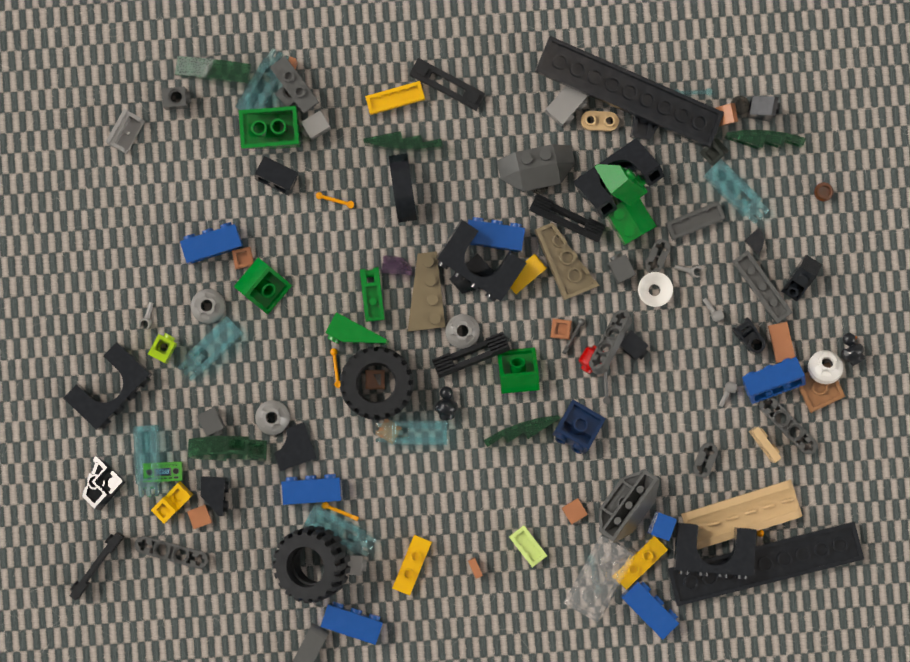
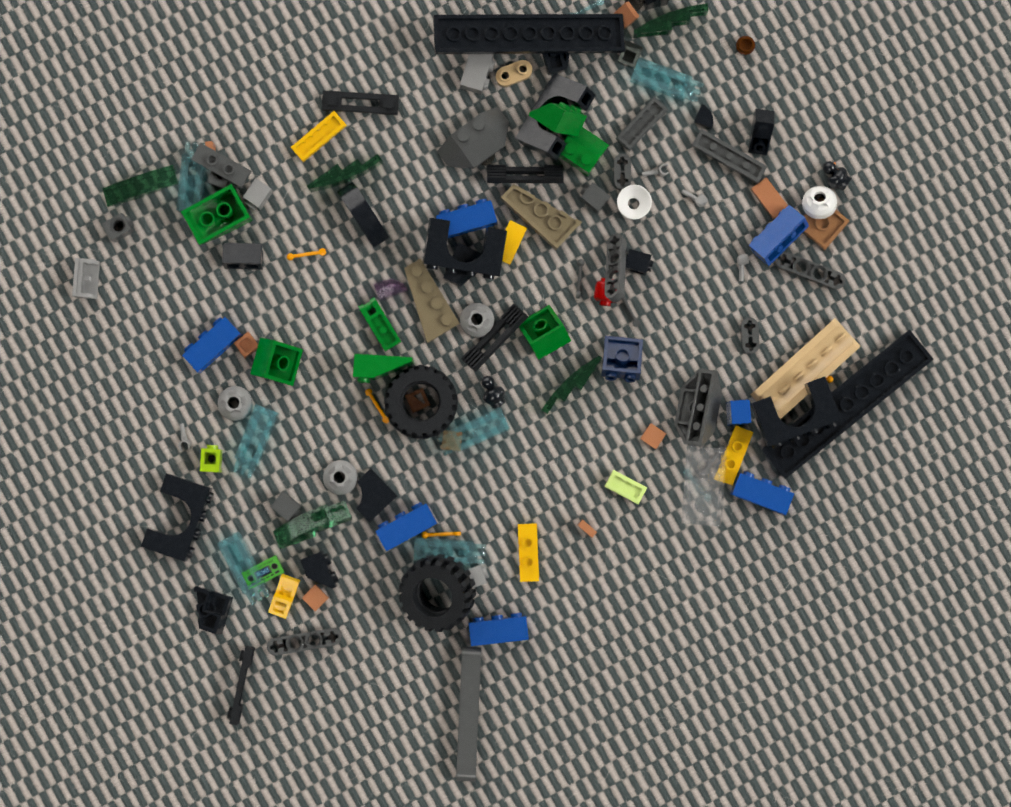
camera: 30 degrees left, 0 degrees up
(560, 329) = (565, 277): nougat tile -> none
(749, 335) = (737, 205): black piece -> none
(761, 439) = (802, 299): tan plate -> none

